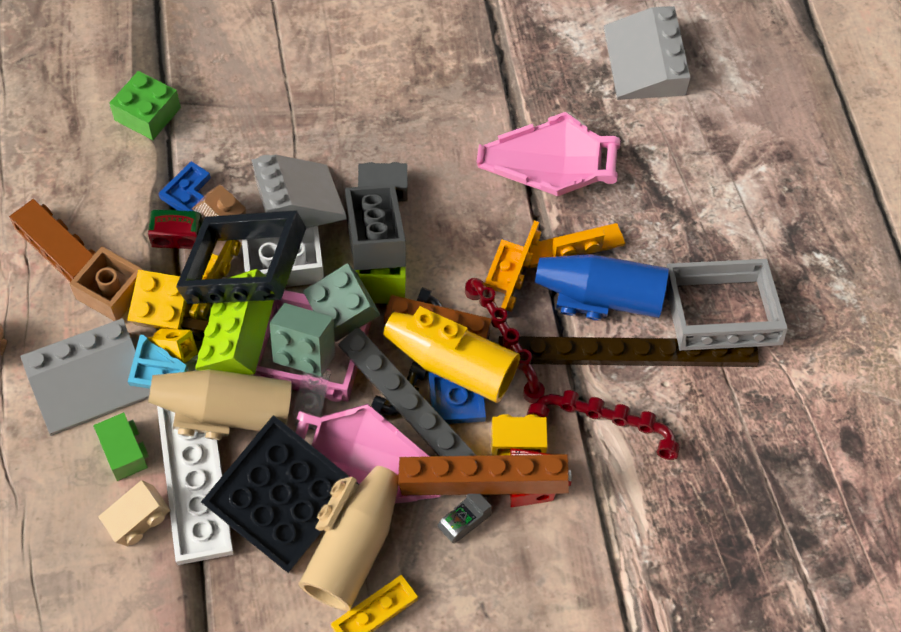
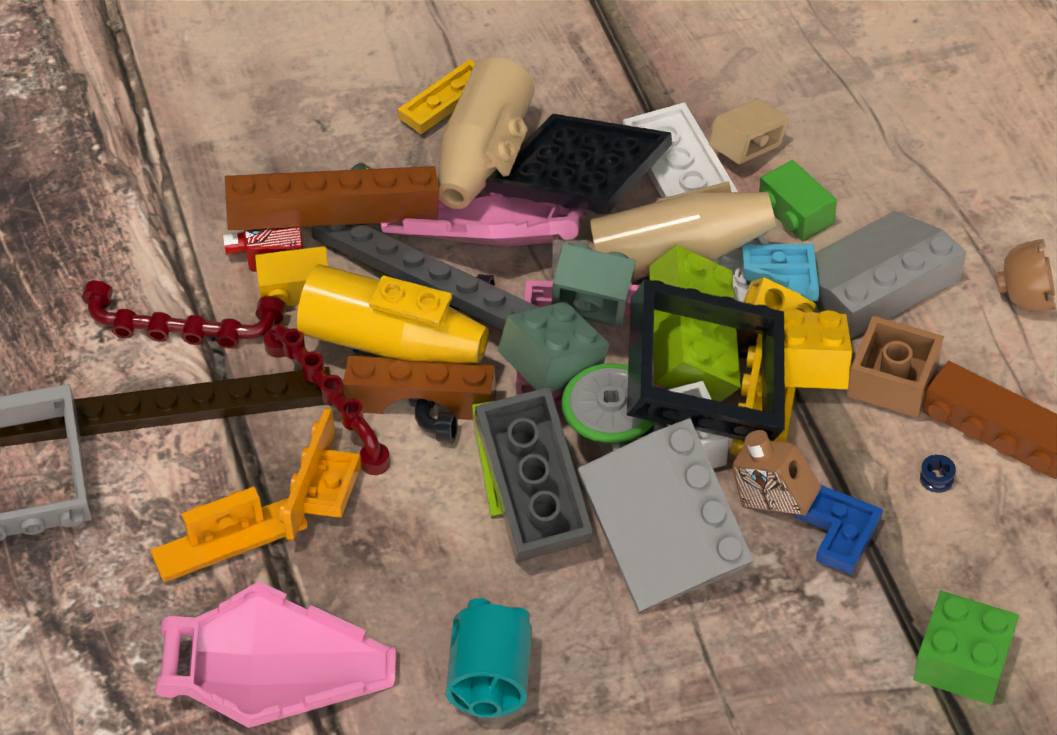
camera: 175 degrees right, 10 degrees down
(112, 213) = (945, 467): none -> dark blue bush
(174, 228) = (841, 459): dark red piece -> none
(327, 255) = (597, 405): none -> light grey wheel
(385, 174) = (542, 581): dark grey brick -> none
(423, 129) = (489, 659): none -> teal cylinder
(600, 283) = (178, 463): blue piece -> none

